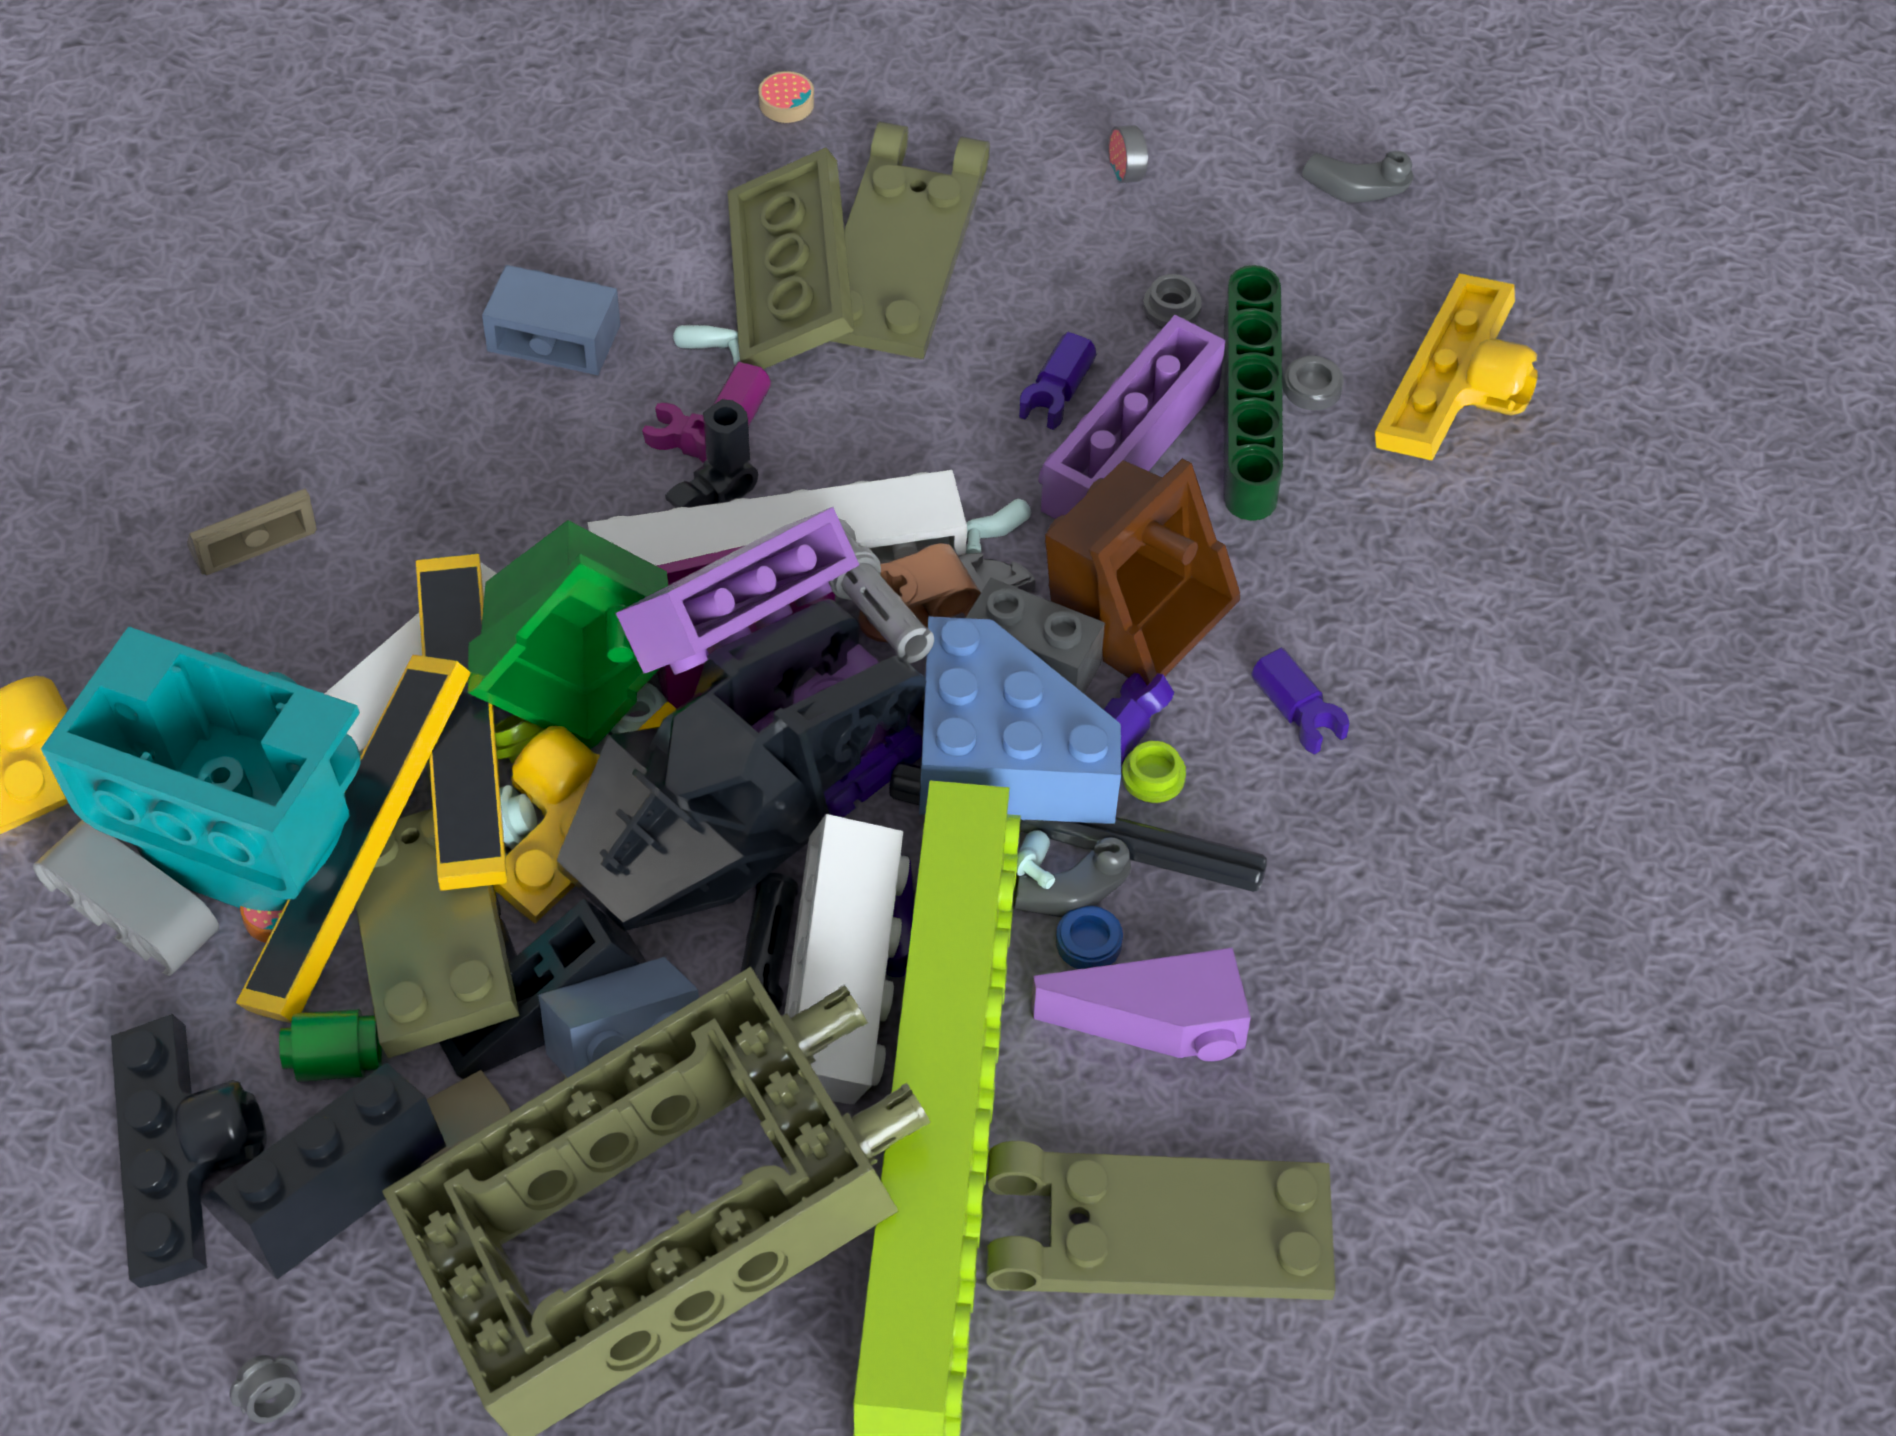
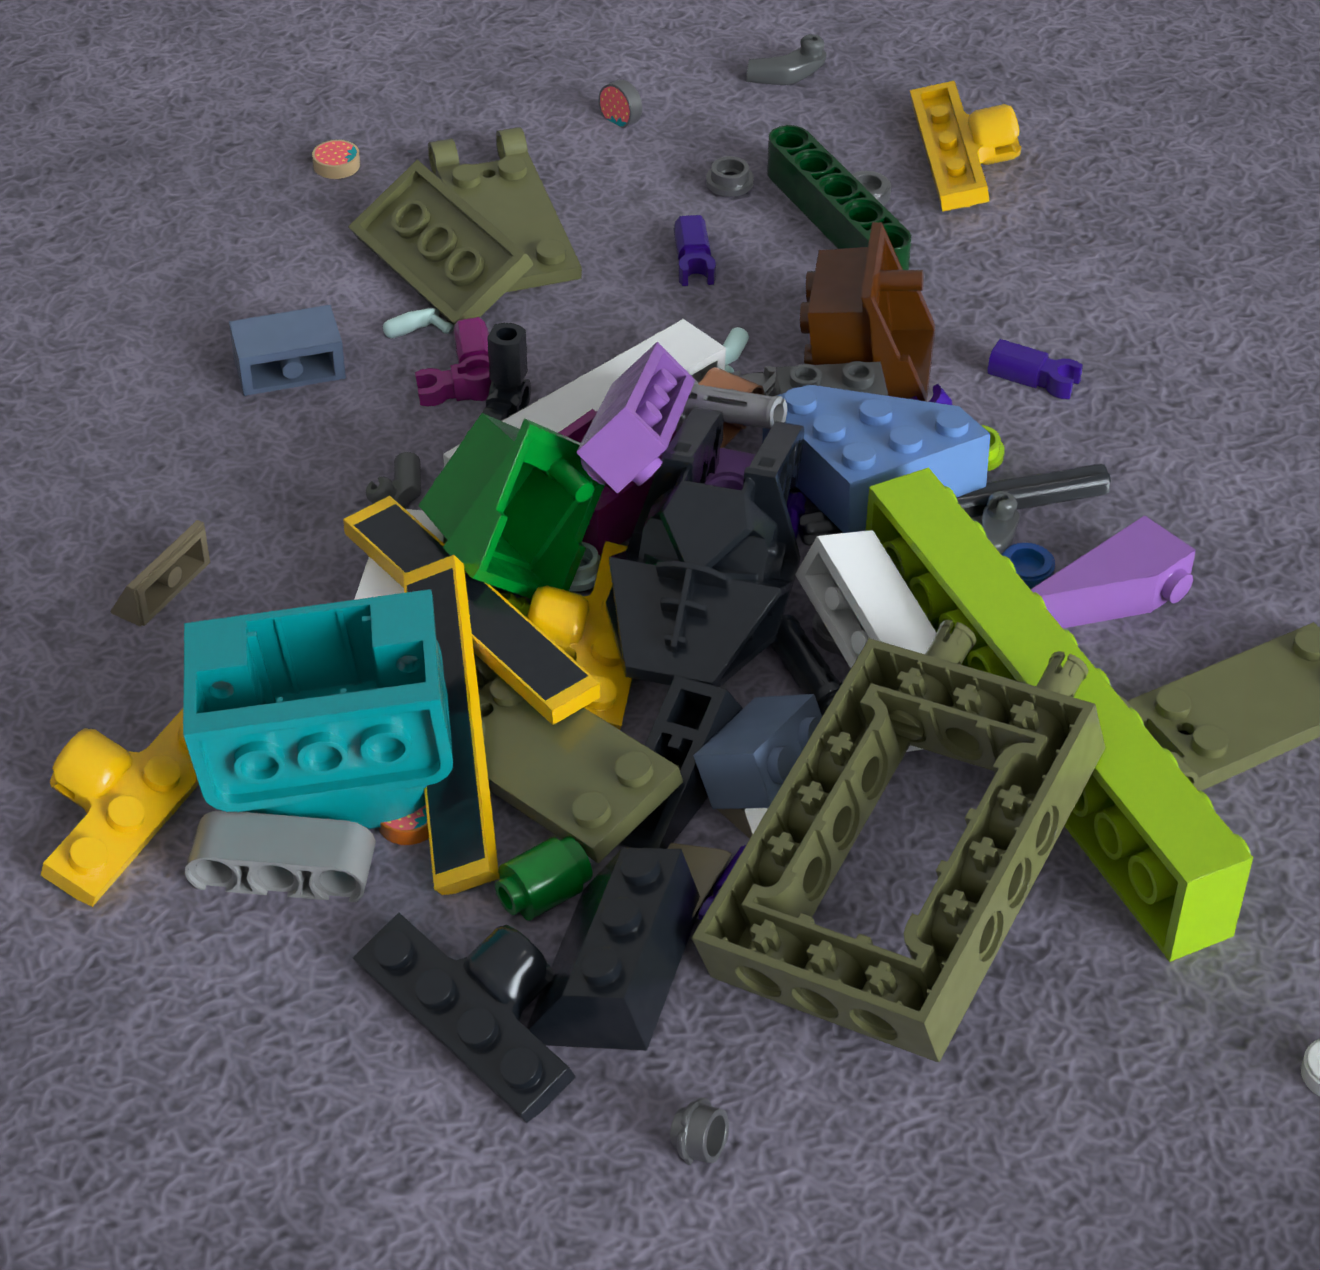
camera: 30 degrees left, 10 degrees down
(522, 535) = (406, 481): none -> dark grey arm
(1137, 414) = (777, 250): medium lavender brick -> none

